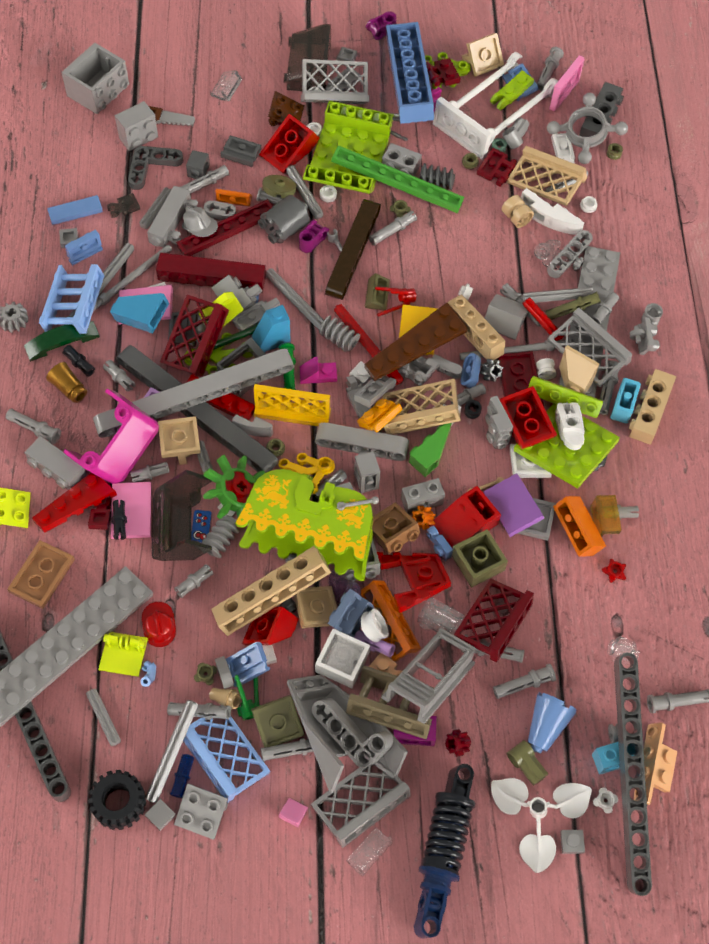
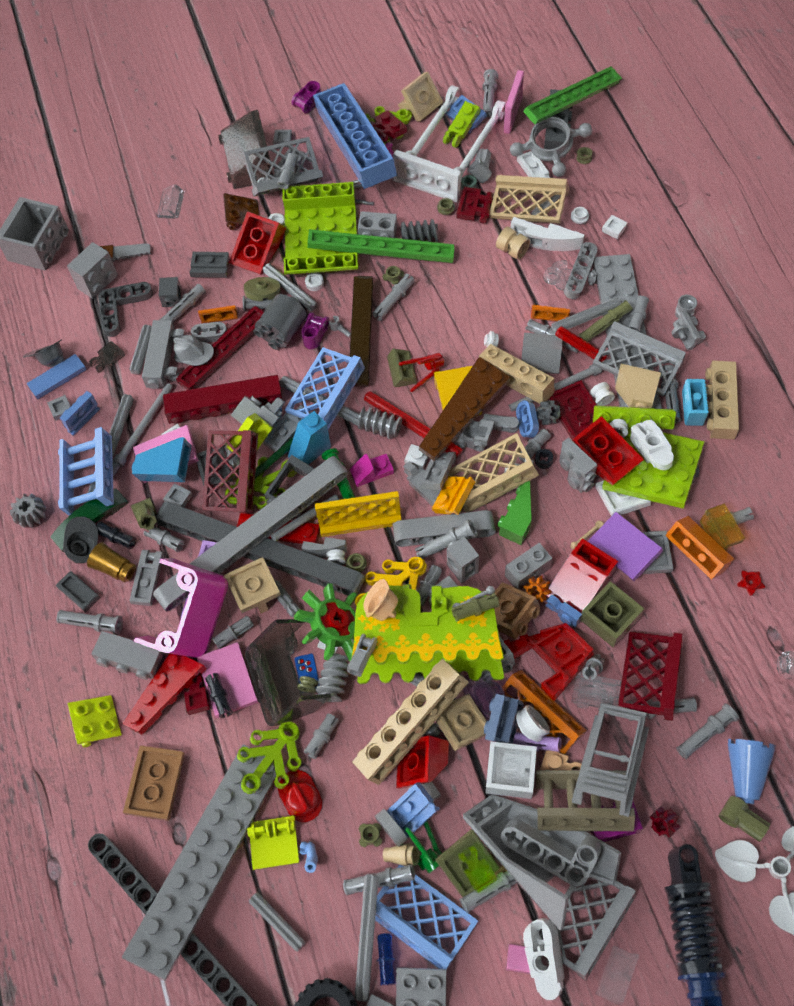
camera: 10 degrees left, 0 degrees up
(31, 398) = (77, 591): none -> dark grey tile
(47, 354) = (80, 539): none -> dark grey piece
(74, 189) = (49, 355): none -> dark grey piece
(92, 404) = (146, 578): none -> light grey plate
(109, 349) = (145, 514): none -> olive piece
(143, 343) = (178, 495): none -> light grey plate
(146, 581) = (272, 754): none -> lime plant
(197, 534) = (307, 684): none -> olive bush
(235, 397) = (298, 522): none -> light grey bar
(243, 521) = (361, 656): none -> light grey bar
(260, 436) = (336, 556): none -> white bush
(278, 481) = (380, 601): none -> light nougat piece
(283, 731) = (479, 871): none -> clear neon green plate
(311, 296) = (340, 391): none -> light blue fence
(311, 834) = (547, 979): none -> white piece
(337, 87) = (287, 171): none -> light grey pin
(356, 509) = (475, 607): none -> olive pin
(378, 448) = (466, 530): none -> light grey pin
(446, 596) = (593, 667): none -> light grey axle
(526, 283) = (549, 313): none -> orange slope
(549, 398) = (619, 423): none -> white bush
(616, 224) = (614, 227): none -> white plate
(622, 92) = (572, 95): none -> bright green plate

